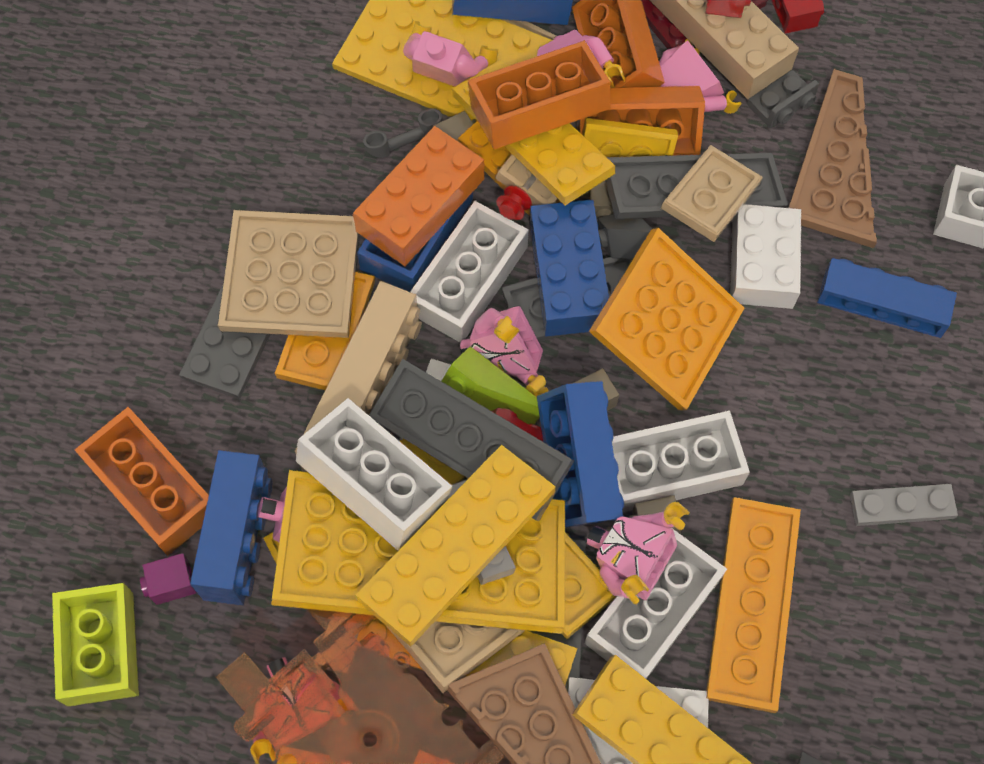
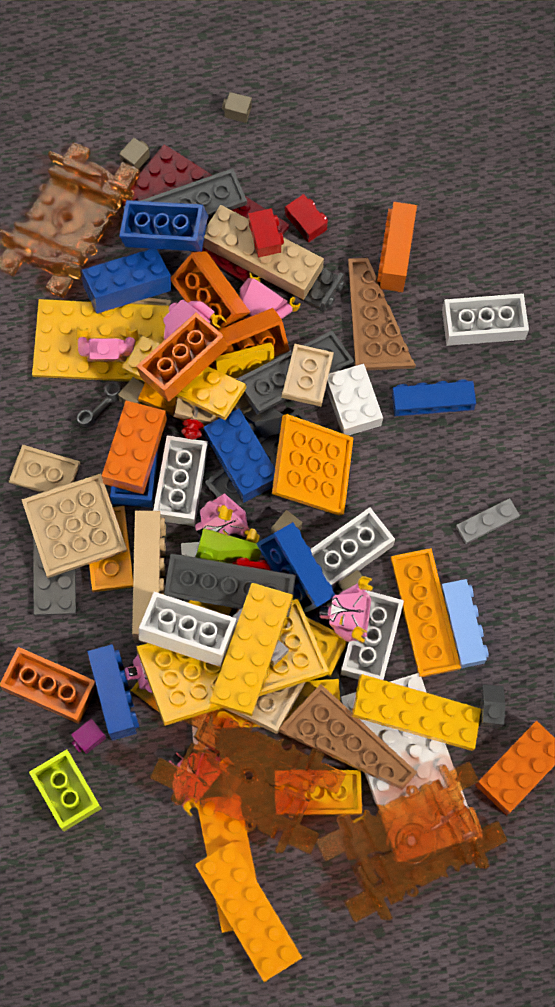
camera: 25 degrees left, 5 degrees up
(287, 187) = (42, 470): none -> tan tile
(809, 645) = (464, 624): none -> light blue brick
(910, 74) = (396, 246): none -> orange brick

